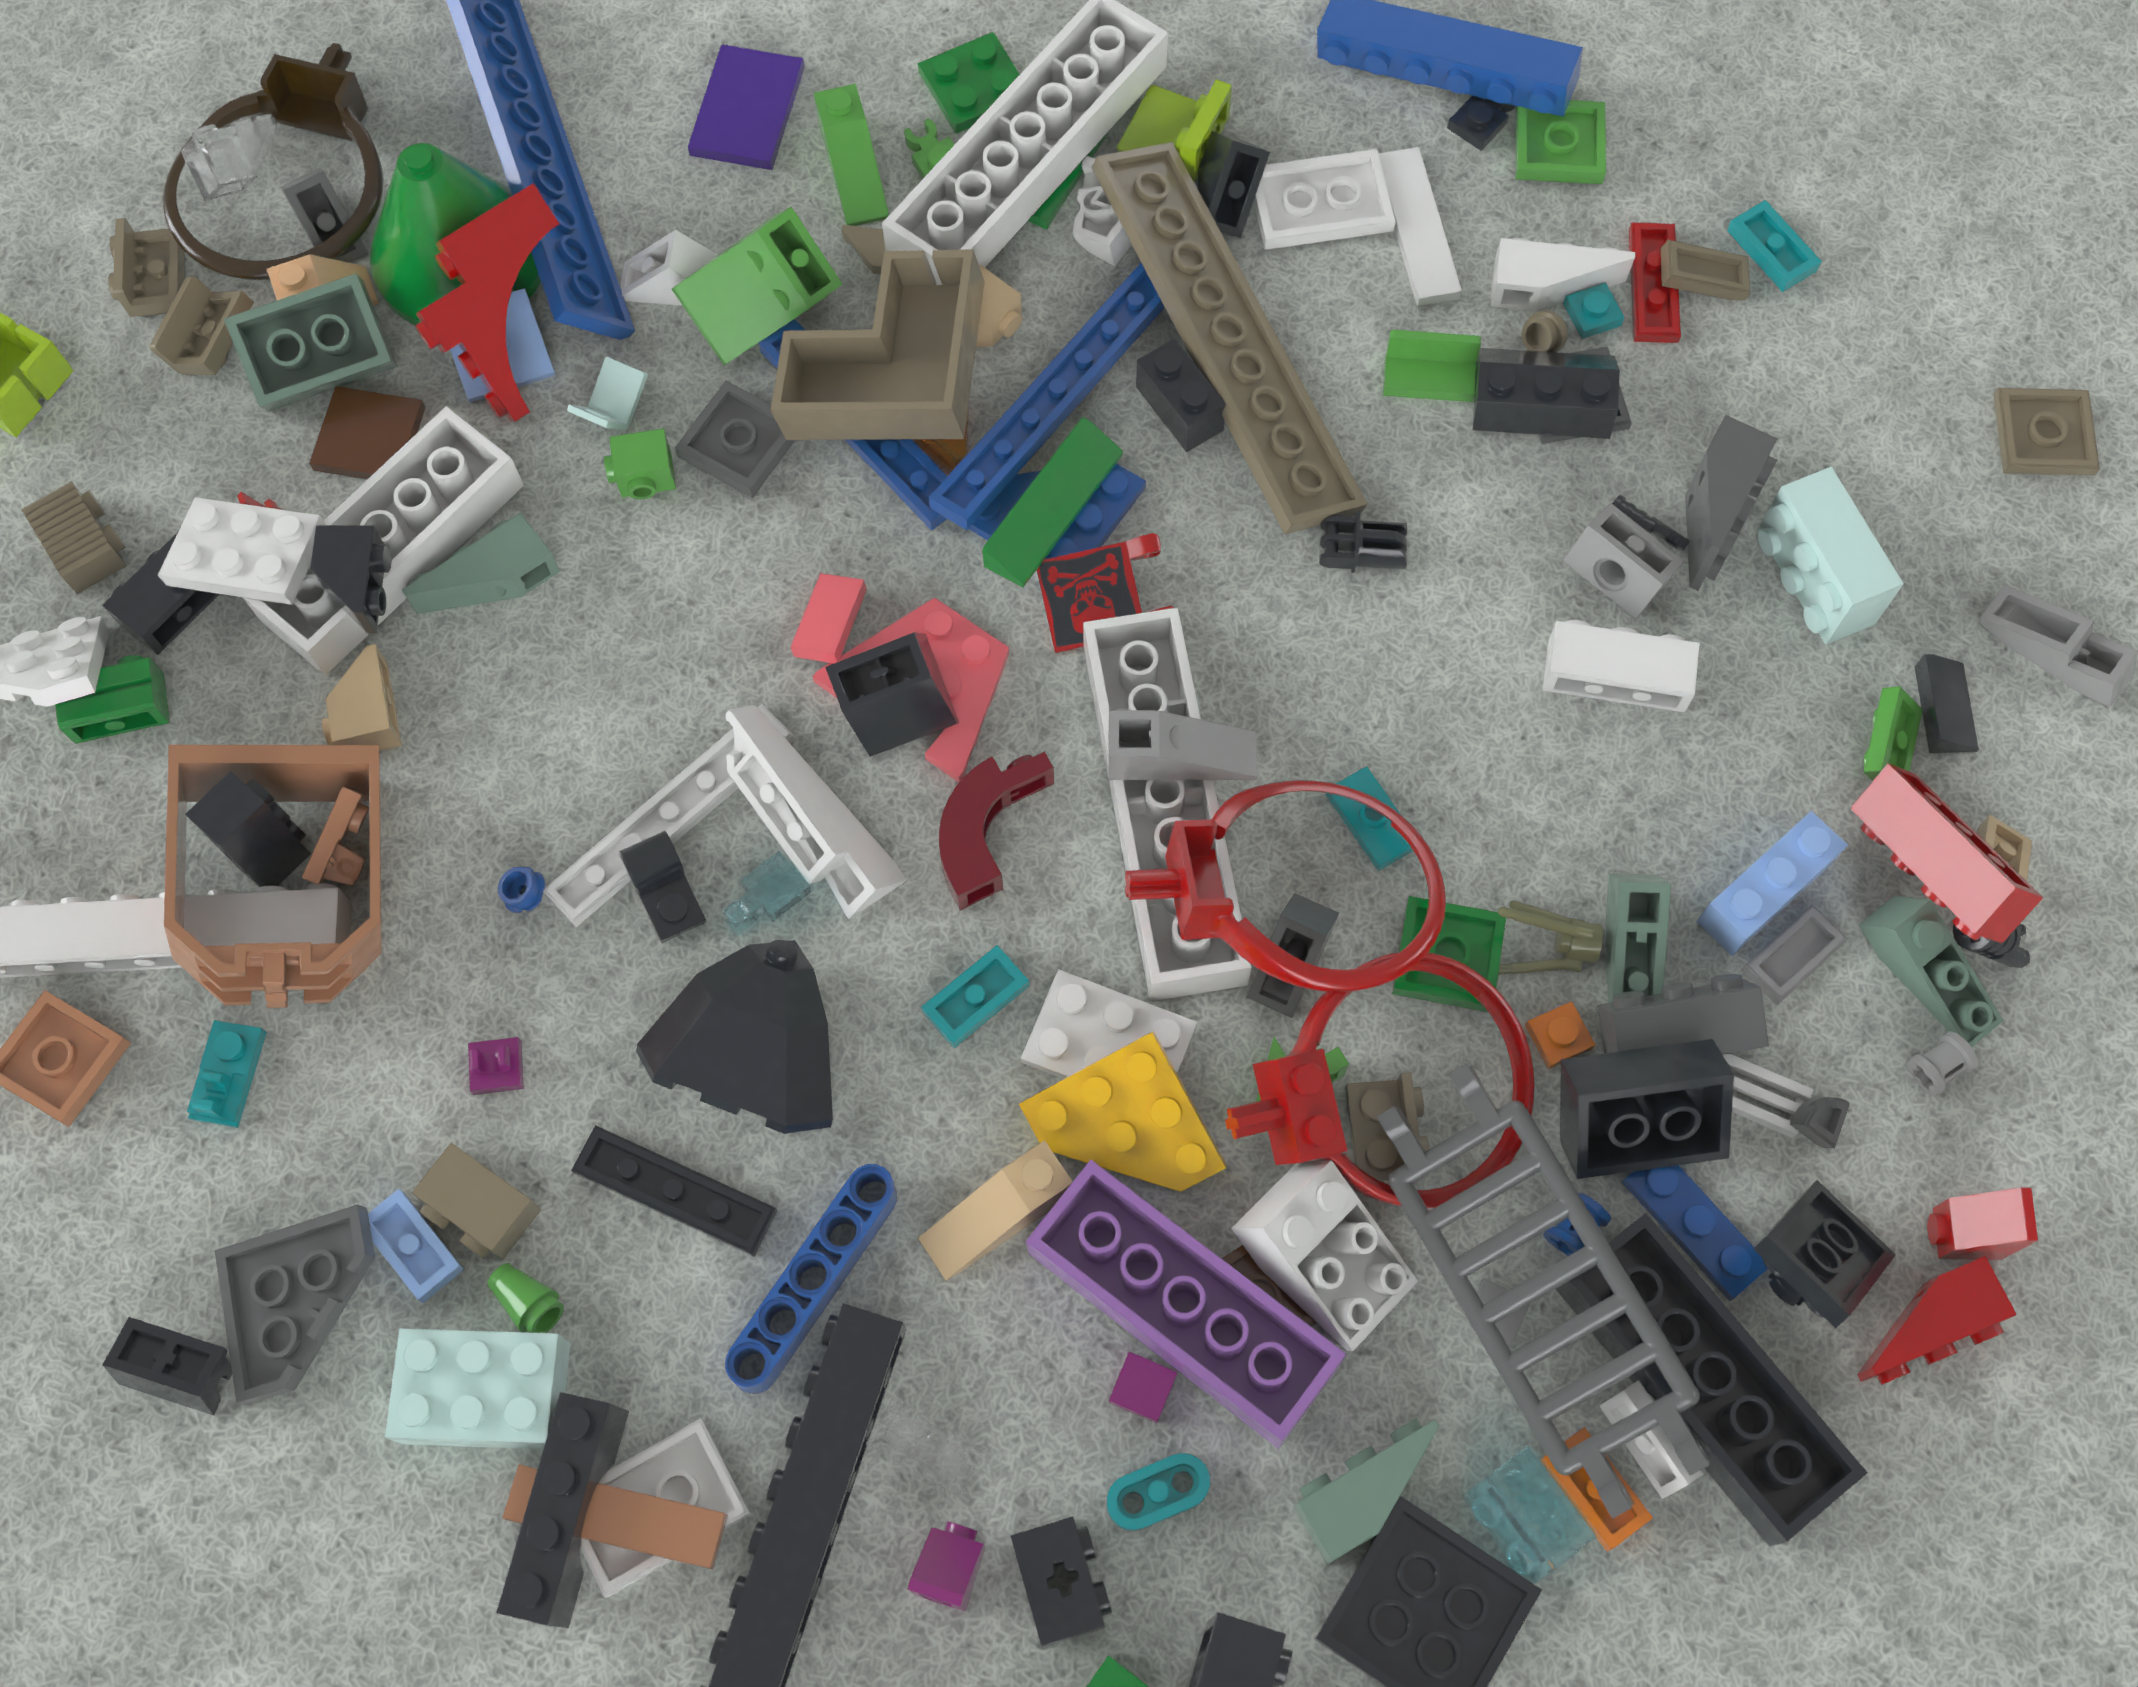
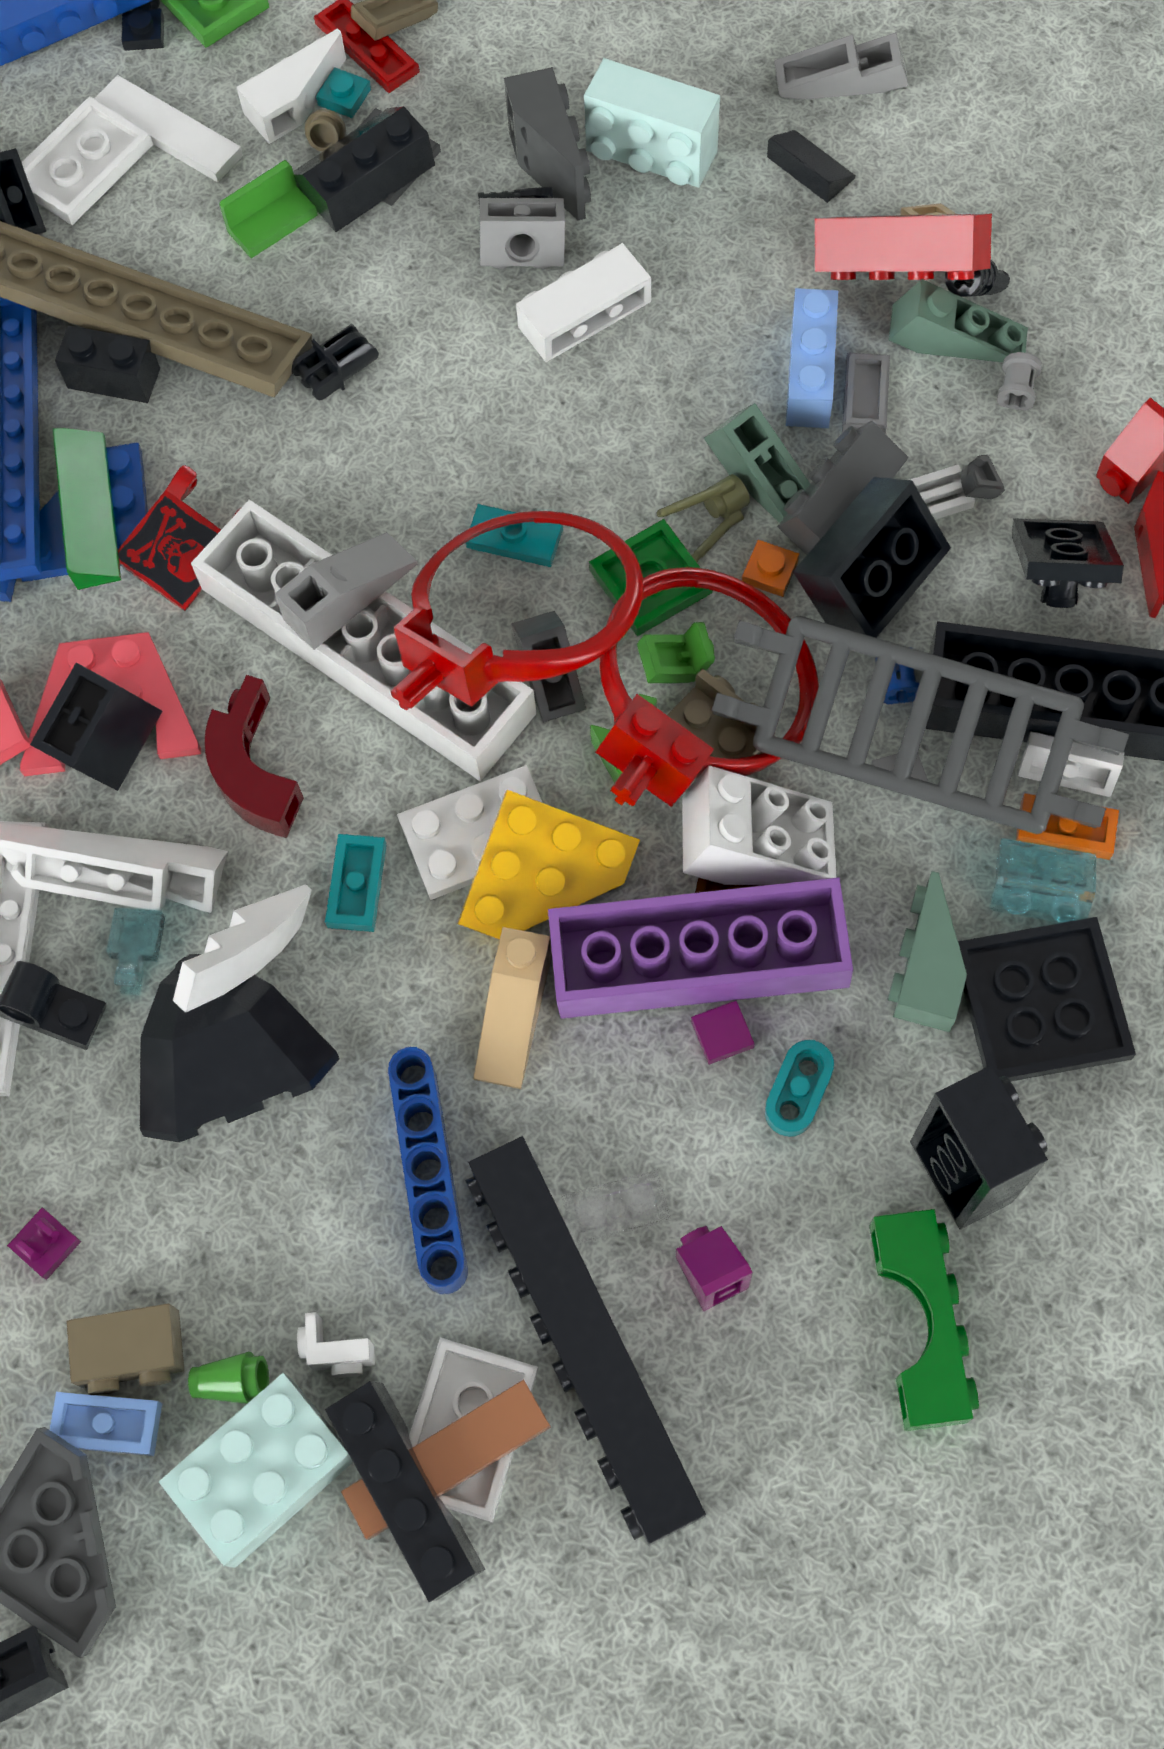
camera: 40 degrees left, 0 degrees up
(616, 1364) = (342, 1357): none -> white bracket
(674, 1190) = (265, 1206): black tile -> none
(820, 976) = (242, 950): none -> white slope
(1037, 1555) = (764, 1204): black brick -> none
(1405, 1040) = (676, 657): none -> bright green bracket
(1697, 1227) = (969, 607): blue plate -> none
(1893, 733) = (795, 203): bright green plate -> none

